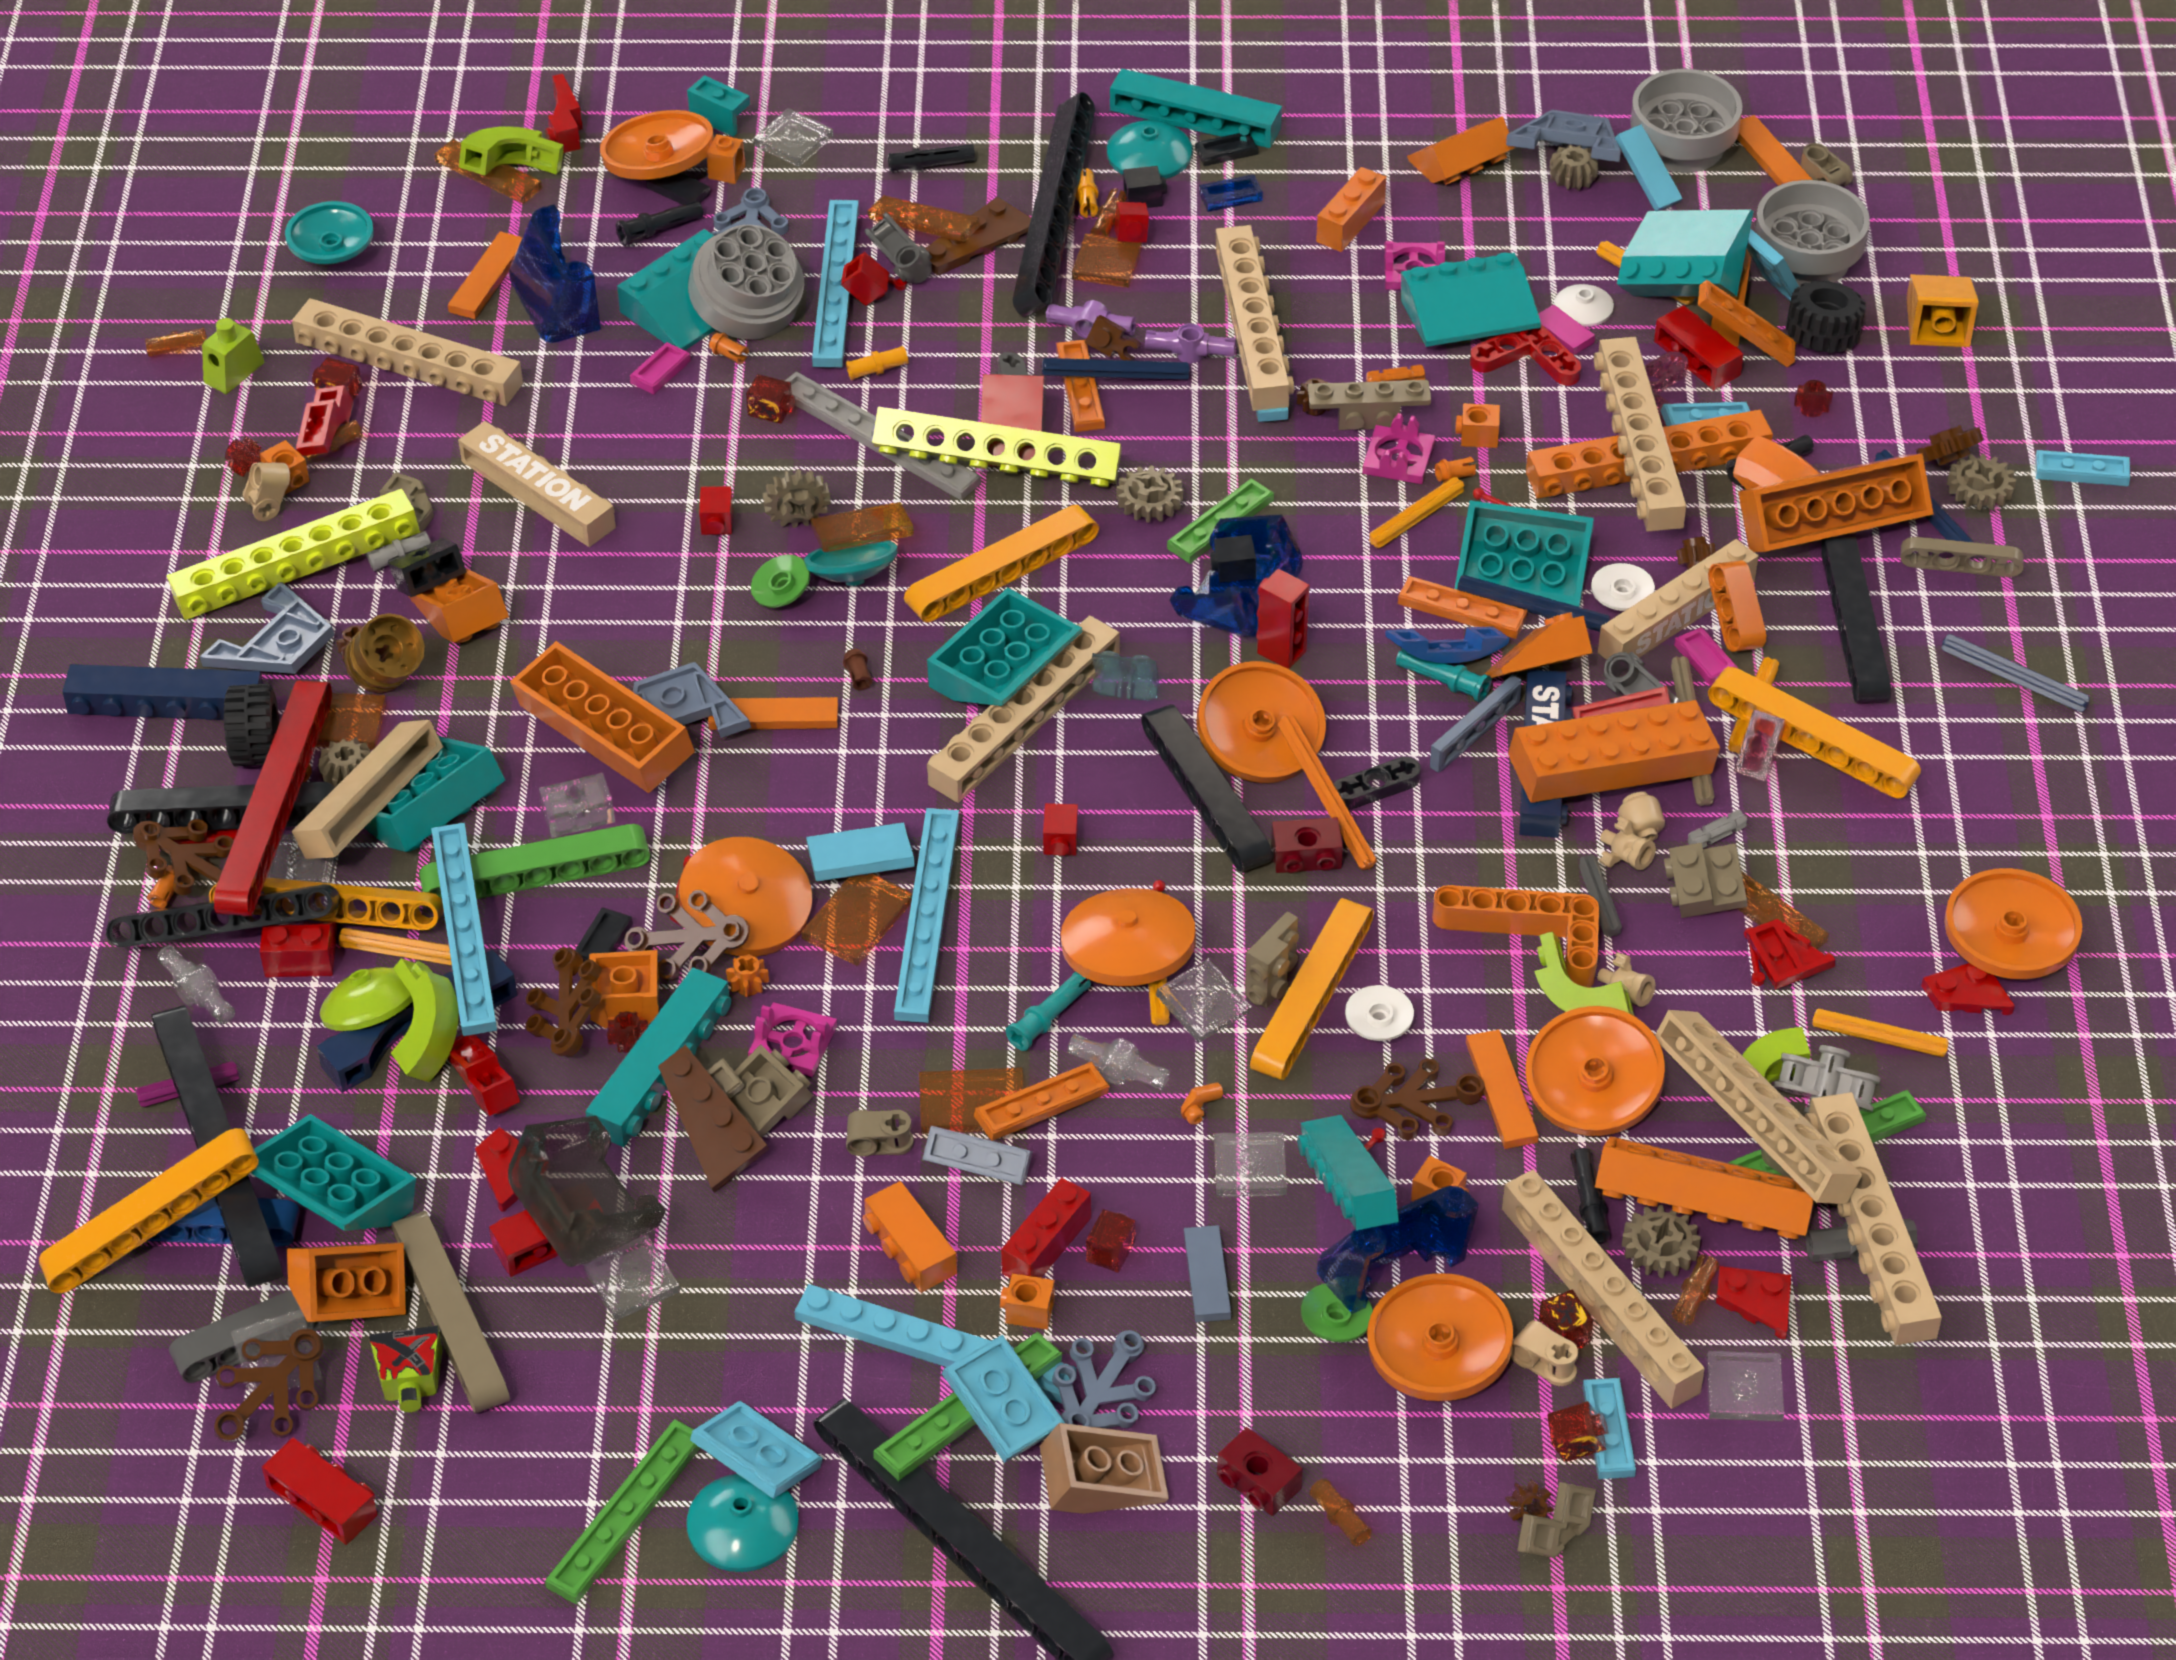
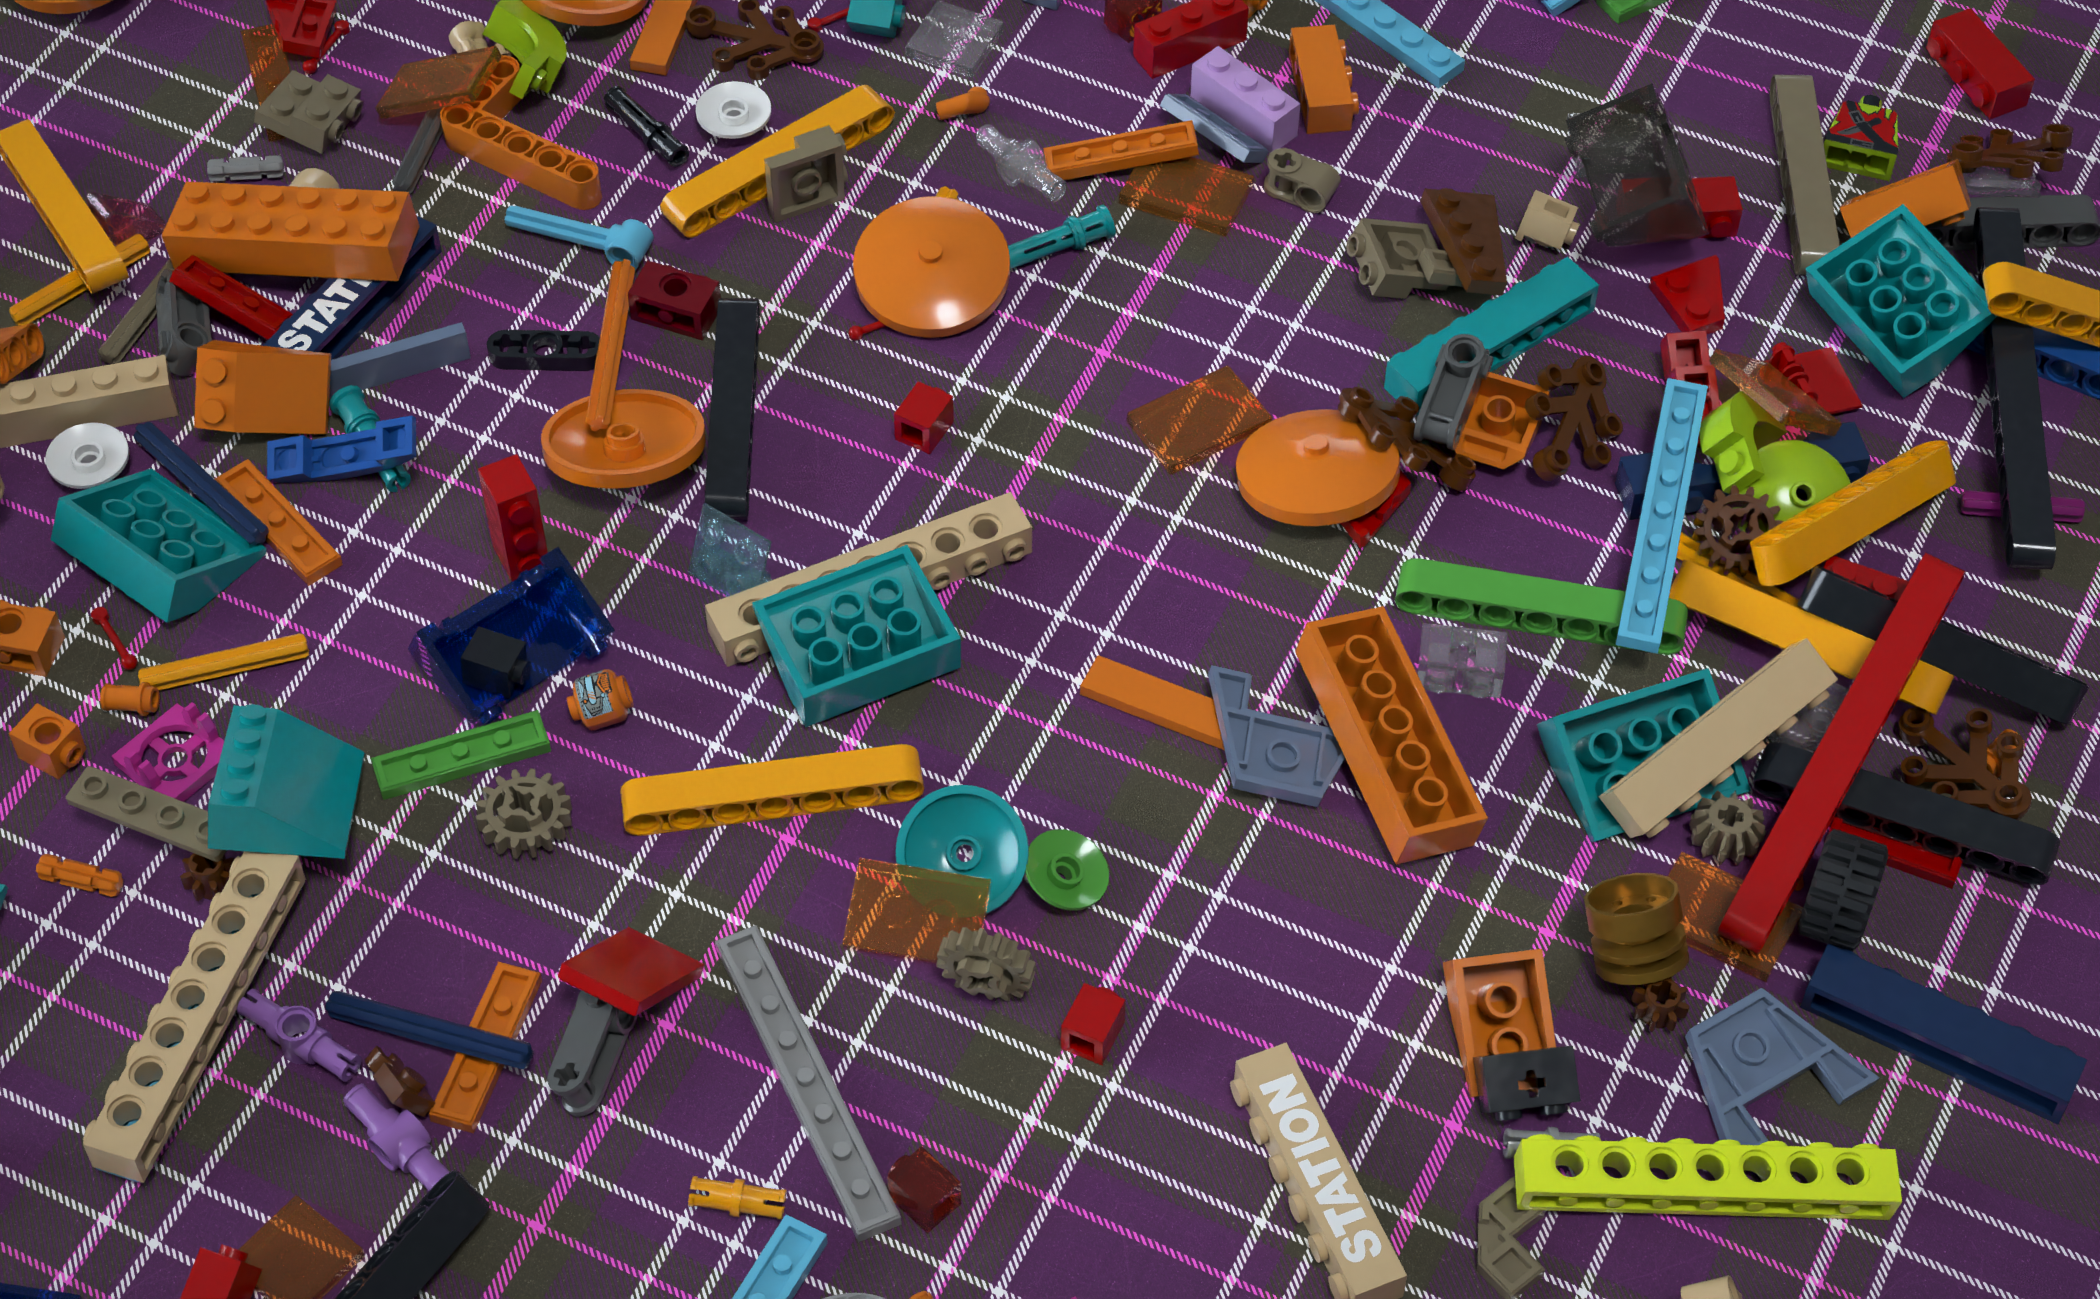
camera: 155 degrees left, 5 degrees up
(196, 984) = (1988, 608): clear pin -> none
(306, 1000) = (1852, 513): none -> light orange beam
(387, 1120) = (1817, 375): none -> red hinge
(402, 940) = (1728, 519): none -> reddish brown gear
(406, 1050) = (1775, 393): none -> clear orange tile
(604, 933) = (1495, 502): black tile -> none
(625, 1030) = (1516, 365): clear red gear -> none
(646, 1162) = (1548, 221): none -> tan brick
(661, 967) = (1453, 390): none -> dark grey piece
(747, 975) = (1356, 375): orange gear -> none
(816, 1047) = (1358, 328): dark pink piece -> none
(855, 663) = (1033, 723): copper pin -> none
(860, 852) = (1160, 477): medium azure tile -> none
(891, 421) = (678, 942): neon yellow brick -> none
(926, 916) = (1122, 388): medium azure plate -> none
(964, 1185) = (1245, 99): none -> lavender brick
(1151, 570) = (600, 699): none -> head
(1203, 1000) = (894, 182): clear plate -> none
(1297, 426) = (283, 787): none -> teal slope
(1379, 875) = (620, 241): none -> medium azure axle
(1427, 974) = (656, 135): none -> black pin
(1622, 926) = (438, 82): none -> clear orange tile
(1627, 846) = (350, 171): tan piece -> none
(1703, 654) = (73, 347): dark pink tile -> none

